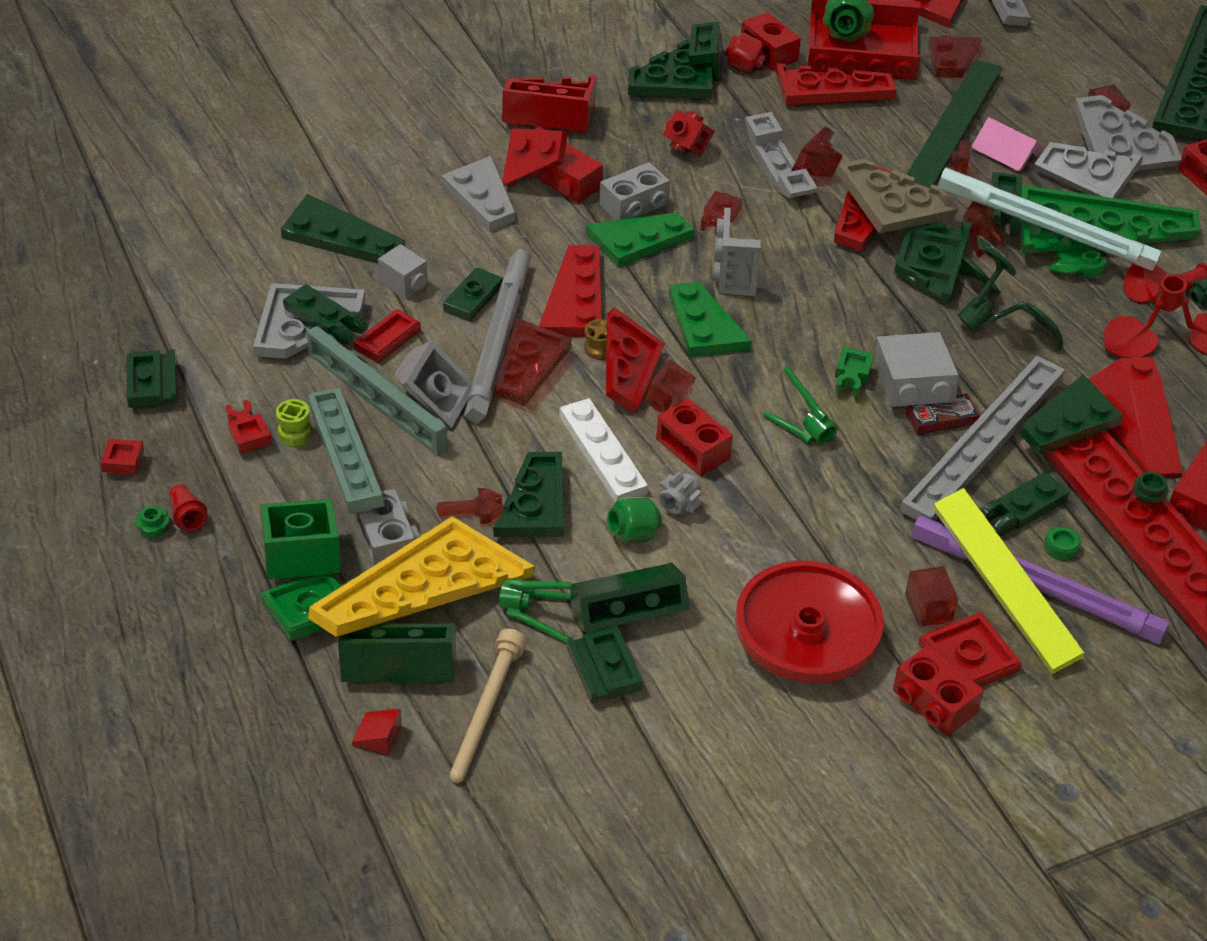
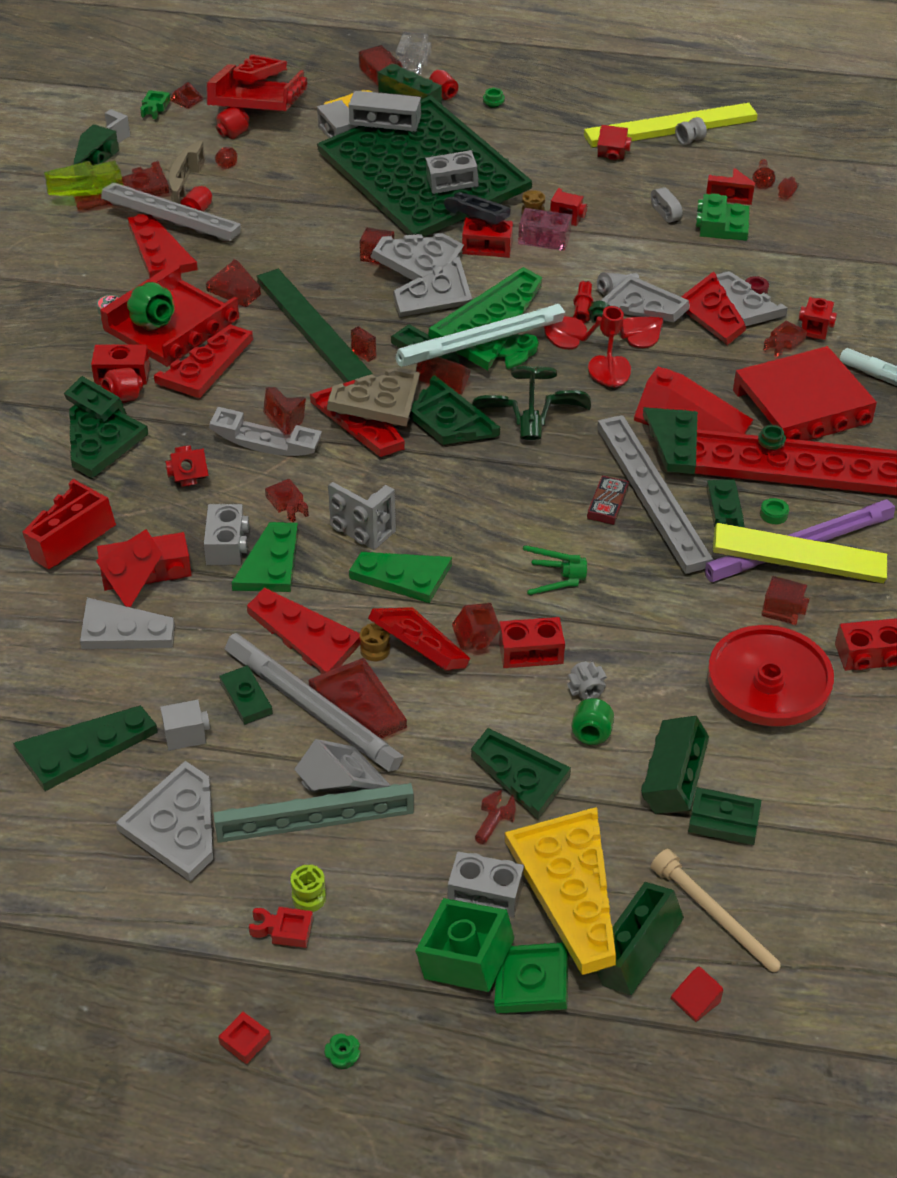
camera: 55 degrees left, 0 degrees up
(151, 378) = (158, 970): dark green plate -> none
(187, 509) = (351, 1015): red cone -> none
(323, 312) = (199, 801): dark green hinge -> none
(345, 451) = (386, 863): sand green plate -> none
(387, 336) = (246, 776): red tile -> none
(520, 595) = (621, 831): green plant -> none
(603, 450) = (495, 705): white plate -> none
(853, 369) = (528, 518): green plate -> none
(916, 369) = (564, 486): light grey brick -> none
(974, 649) = (836, 606): red tile -> none
(1006, 145) = (365, 313): bright pink panel -> none

